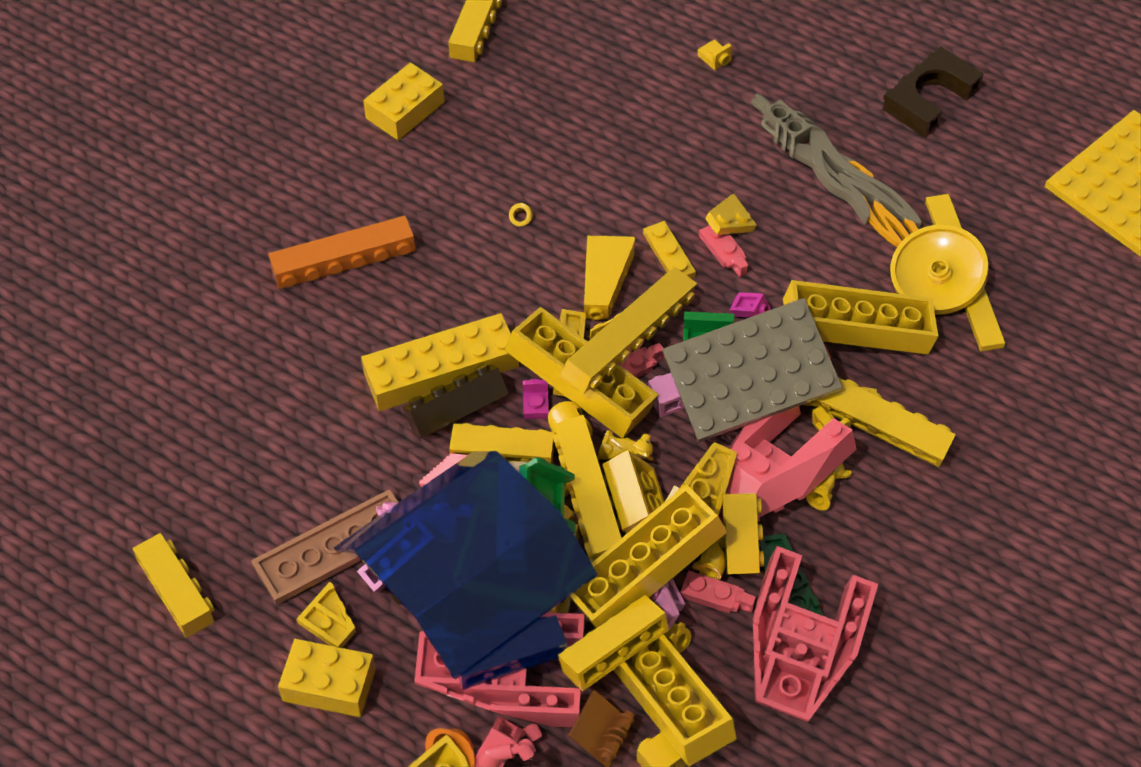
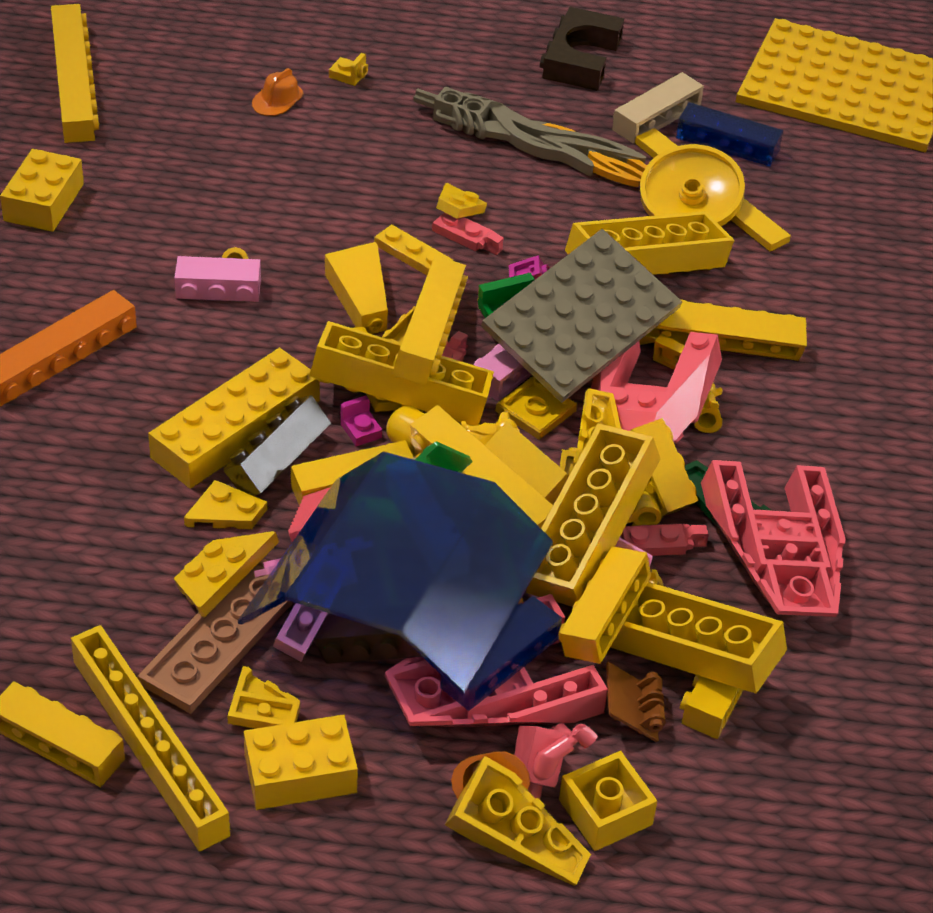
camera: 30 degrees left, 10 degrees down
(231, 616) = (151, 738): none -> yellow brick
(357, 492) = (222, 567): none -> yellow wing
(393, 439) = (226, 508): none -> yellow wing
(495, 229) = (218, 279): none -> bright pink brick
(642, 62) = (278, 94): none -> orange piece
(679, 438) = (535, 408): none -> yellow tile
(964, 173) = (657, 106): none -> tan brick
(1012, 221) = (729, 134): none -> clear blue brick

